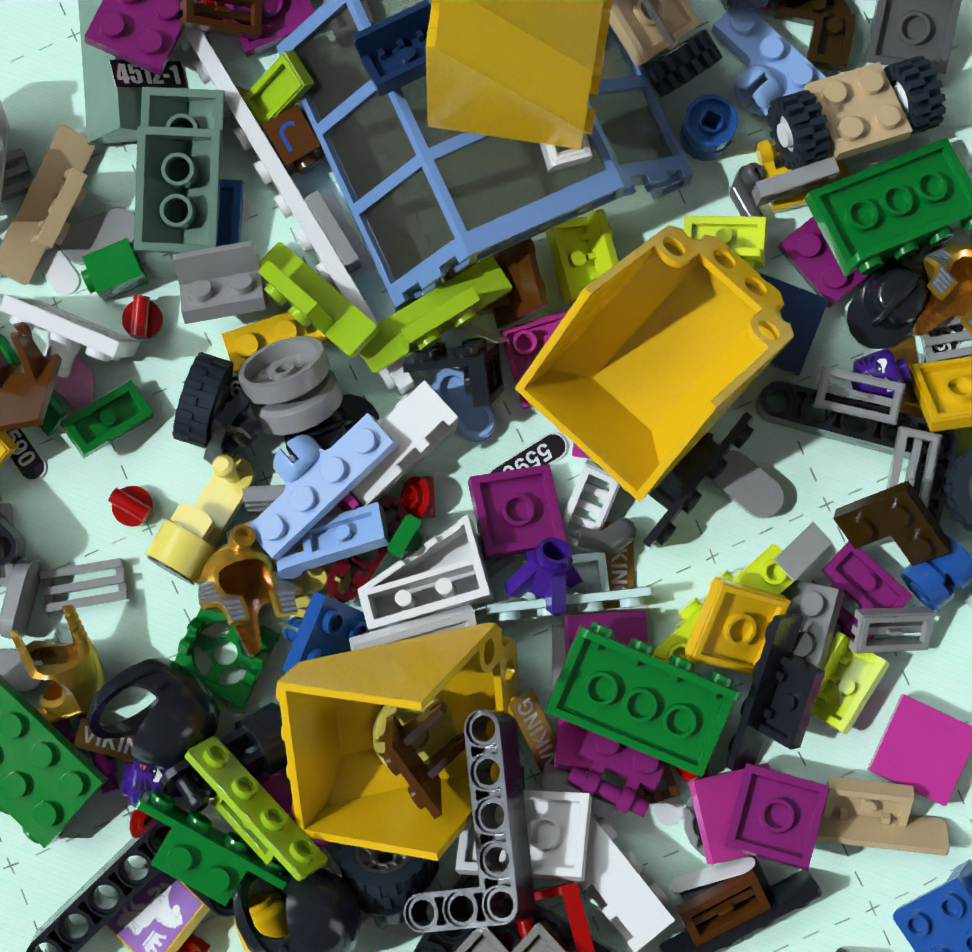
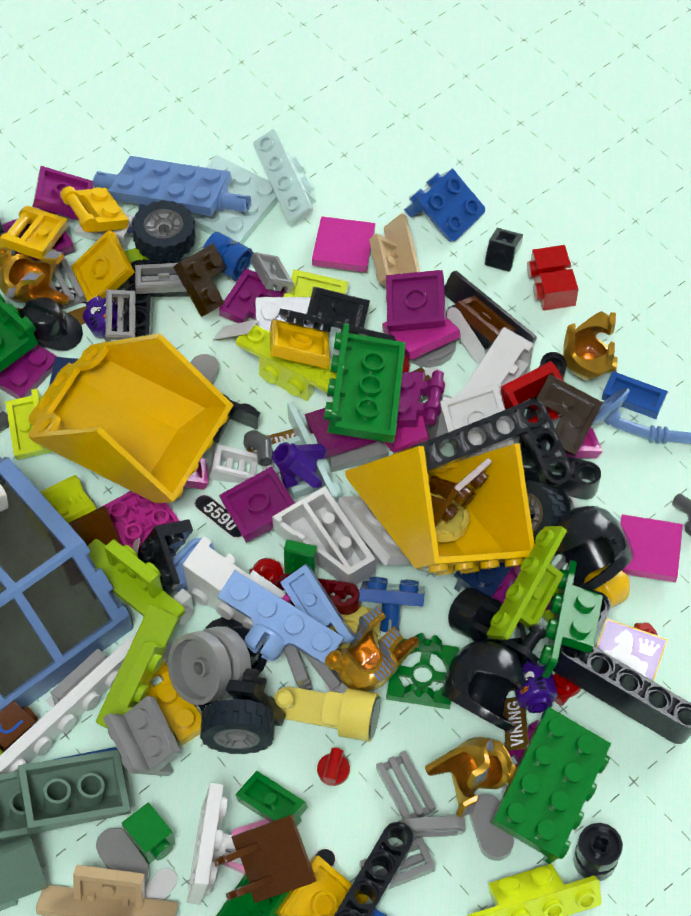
camera: 110 degrees left, 25 degrees down
(142, 318) = (183, 805): red plate -> none

